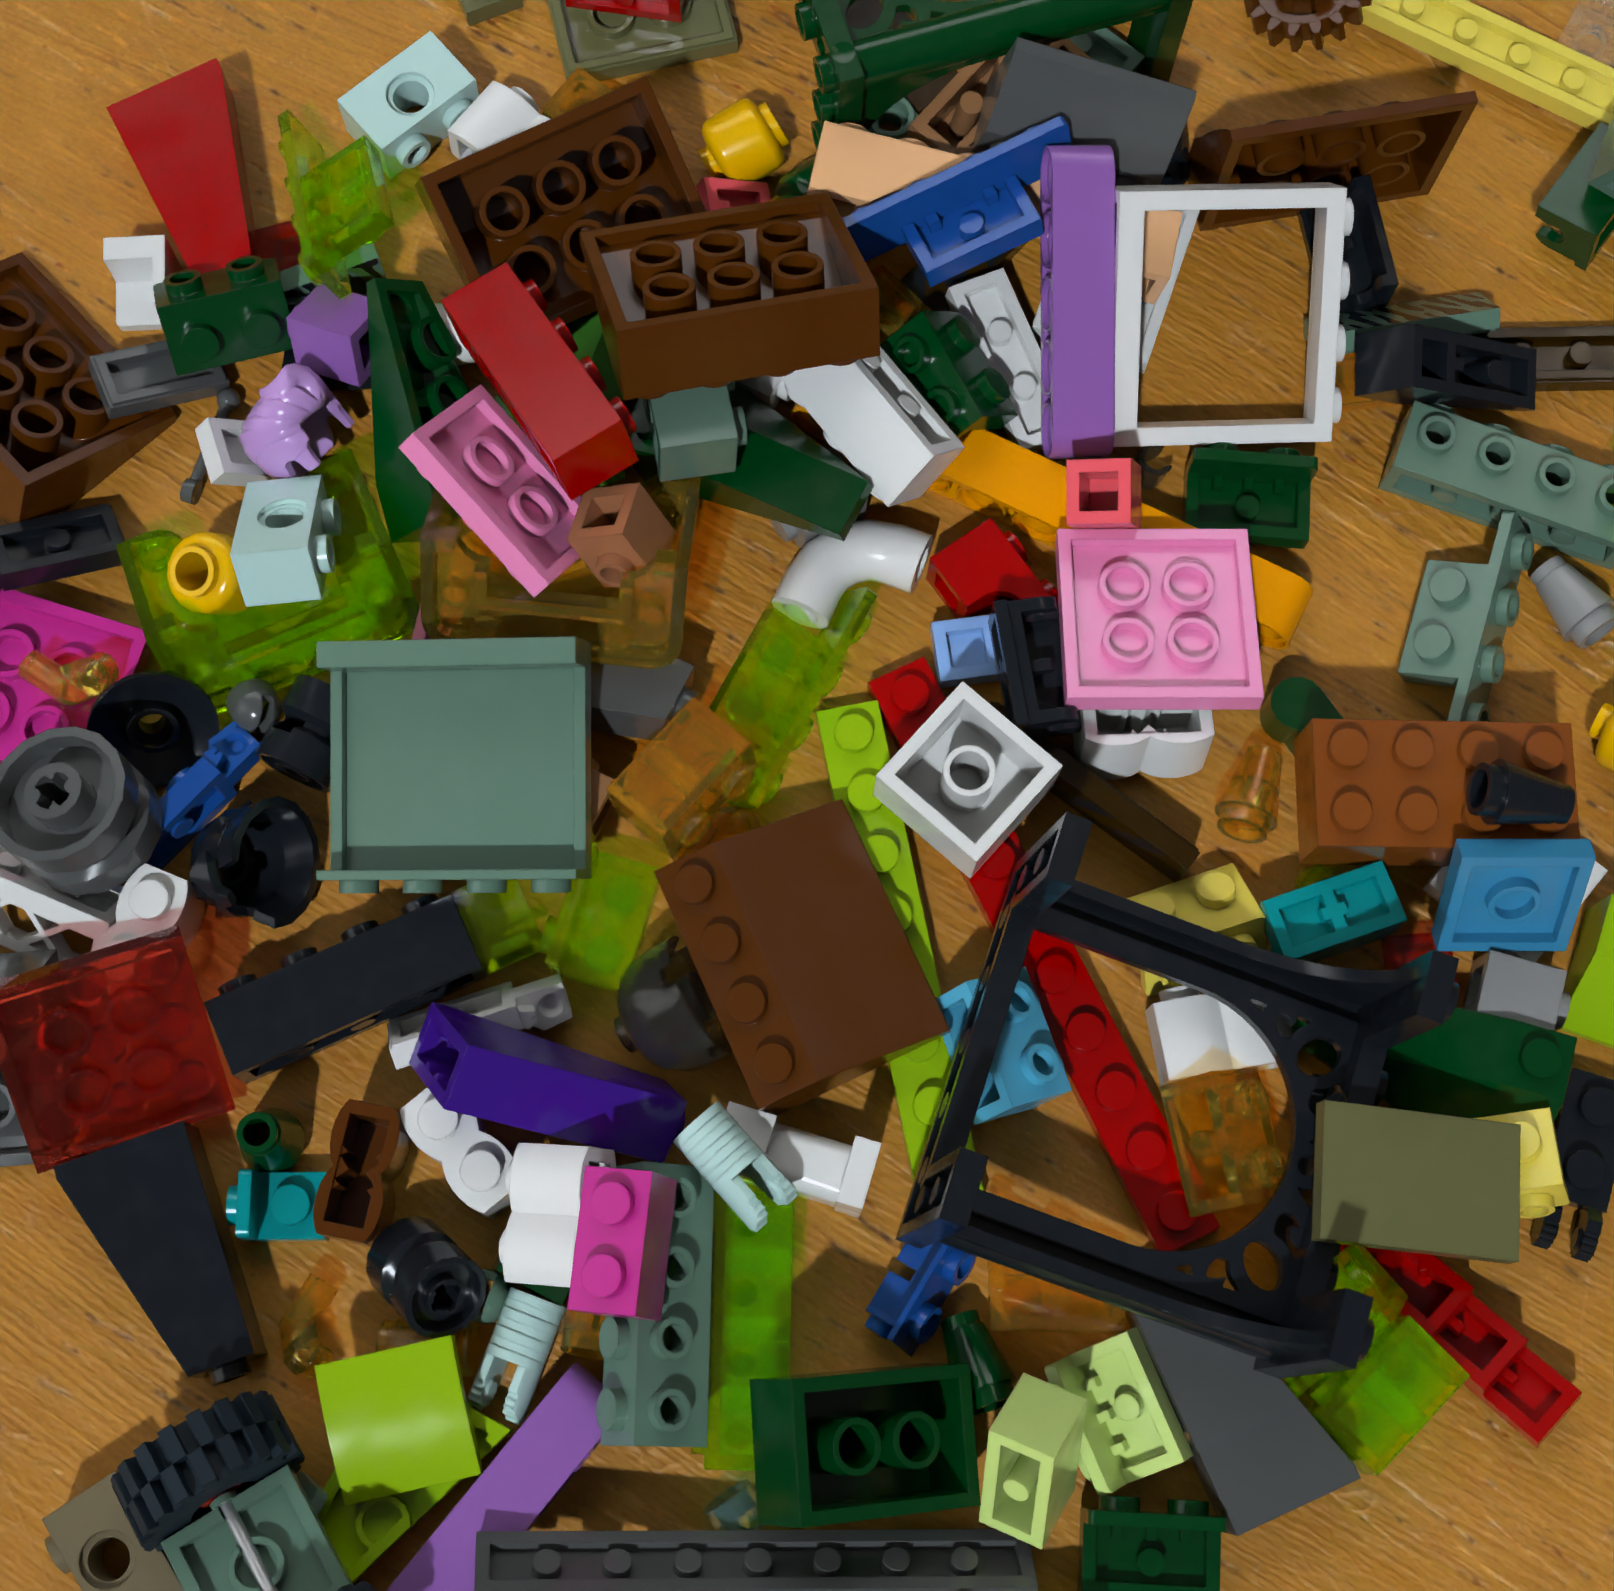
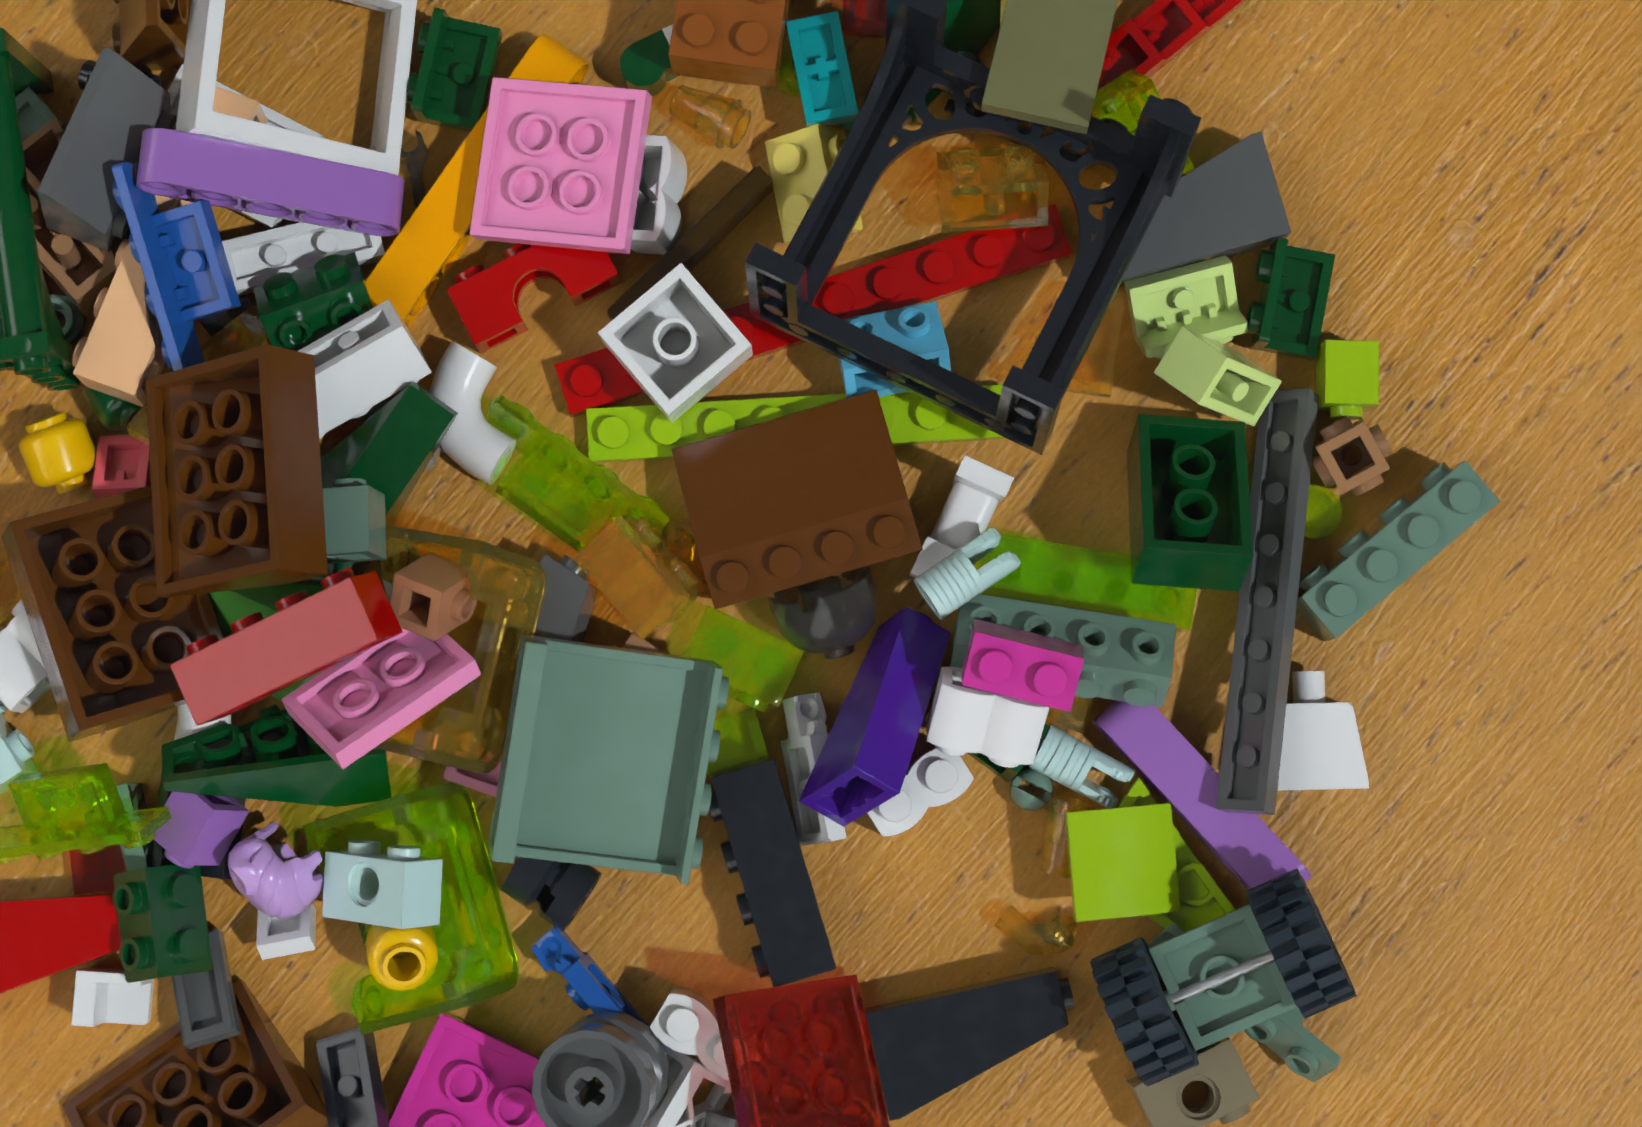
camera: 80 degrees left, 10 degrees up
(73, 681) = (480, 1080): clear yellow arm -> none
(158, 747) = (527, 1012): black dish -> none
(191, 489) = (233, 932): dark grey hinge -> none
(246, 705) = (519, 929): dark grey hinge -> none
(257, 862) = (658, 937): black helmet -> none
(274, 1205) = (939, 944): teal bracket -> none
(281, 1148) = (881, 932): dark green cone -> none
(367, 1156) = (941, 877): reddish brown brick -> none
(426, 1277) = (1015, 830): black wheel -> none
(734, 1508) = (1218, 611): clear light blue hinge -> none
(912, 1310) = (1083, 453): blue hinge -> none
(963, 651) = (554, 328): light blue plate -> none
(970, 1342) = (1121, 411): dark green cone -> none
(1030, 666) = (587, 276): black hinge -> none
(1103, 493) = (449, 190): coral brick -> none
(1203, 1035) = (907, 191): white brick -> none
(1387, 1396) = (1203, 84): clear neon green brick -> none

